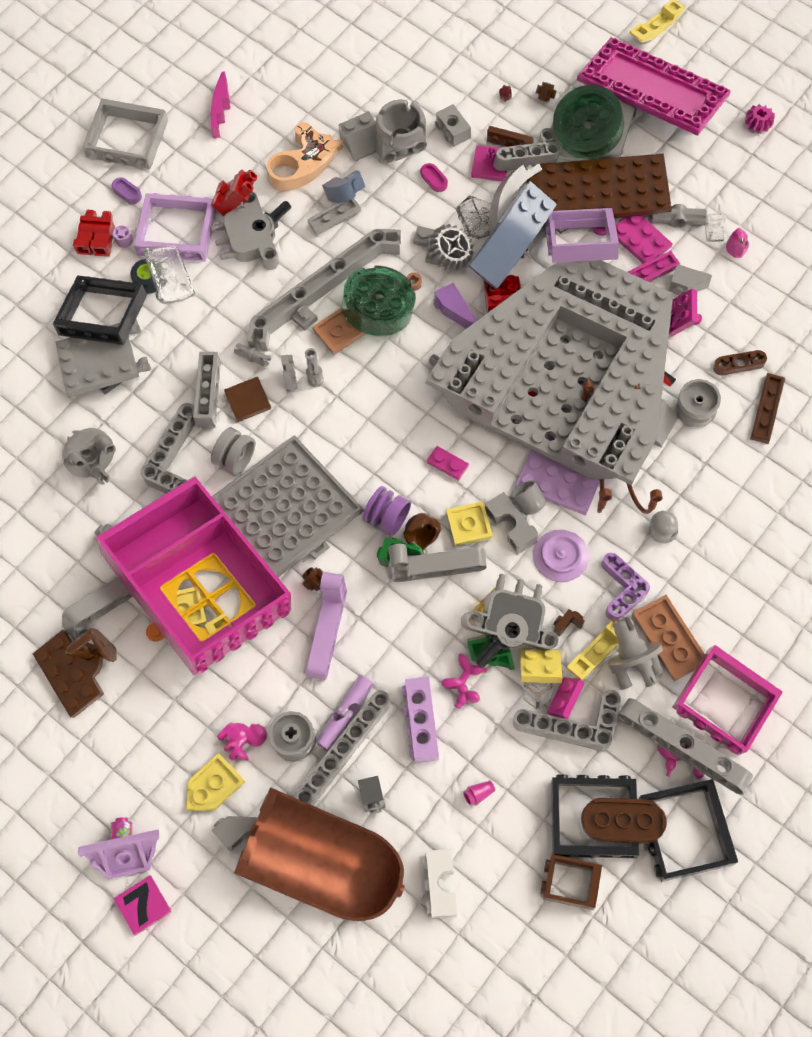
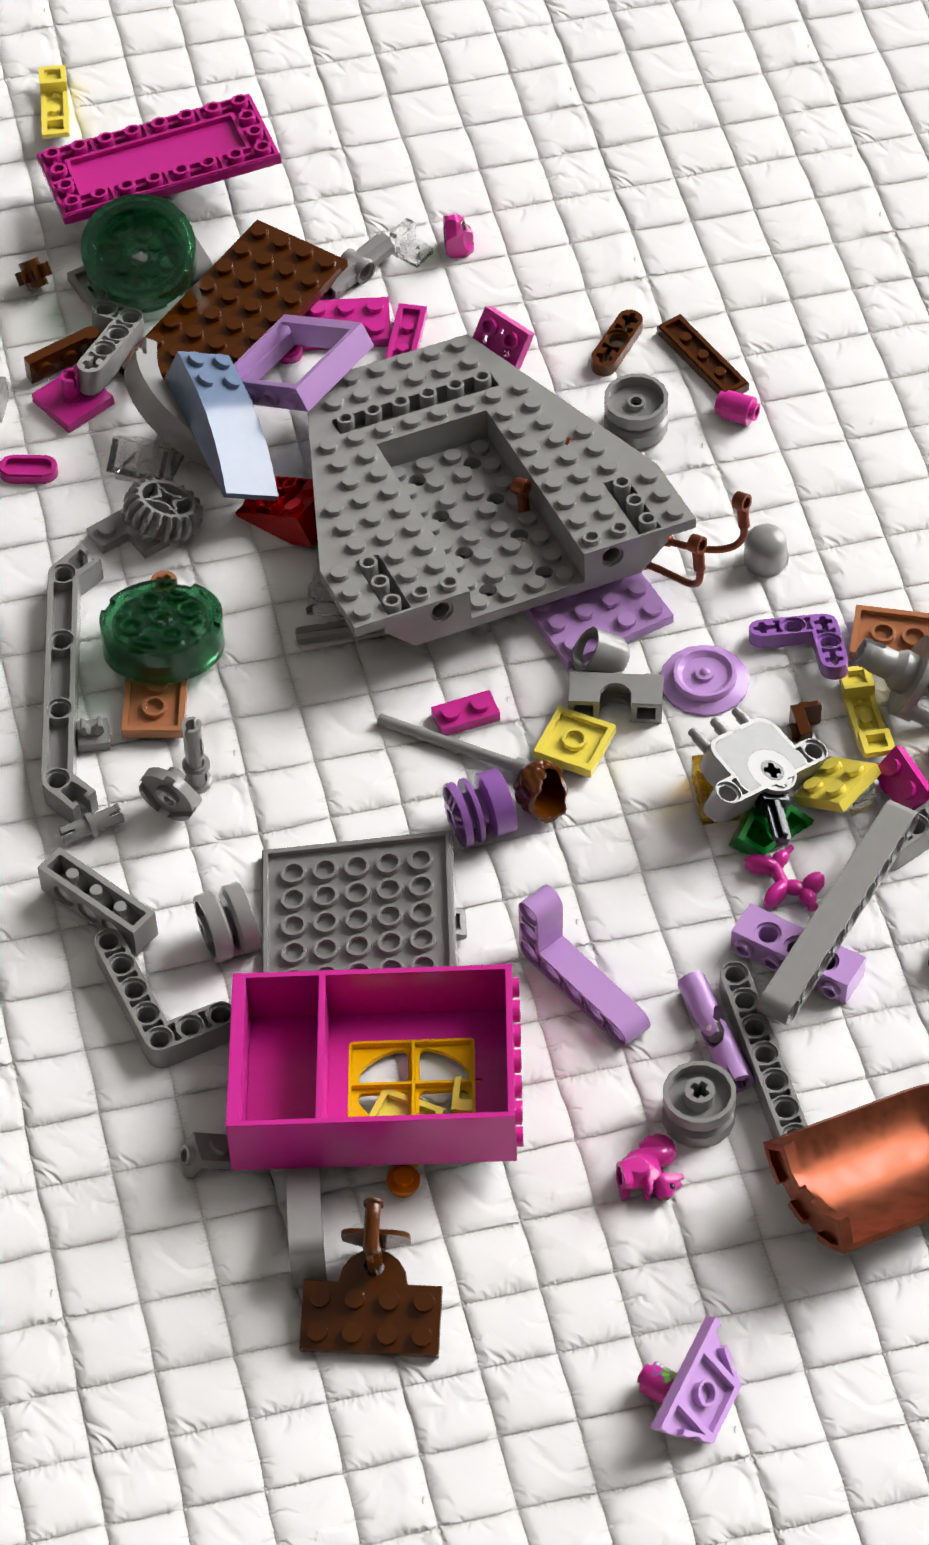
camera: 55 degrees left, 15 degrees down
(89, 454) = (62, 1088): light grey piece -> none
(142, 905) = (784, 1422): dark pink tile -> none
(212, 785) = (684, 1242): light yellow tile -> none
(233, 830) = (771, 1250): light grey slope -> none
(247, 399) = (153, 871): reddish brown tile -> none
(312, 578) = (497, 948): reddish brown gear -> none
(371, 794) = (856, 1059): dark grey brick -> none
(383, 552) = (535, 832): green bracket -> none
(434, 509) = (452, 744): none -> light grey bar
(434, 564) = (580, 827): light grey beam -> none
(452, 723) = (837, 913): none -> light grey beam
(453, 305) = (251, 564): medium lavender slope -> none
(687, 278) = (456, 314): light grey slope -> none
(747, 447) = (737, 407): none -> dark pink brick
(759, 118) = (304, 104): dark pink gear -> none

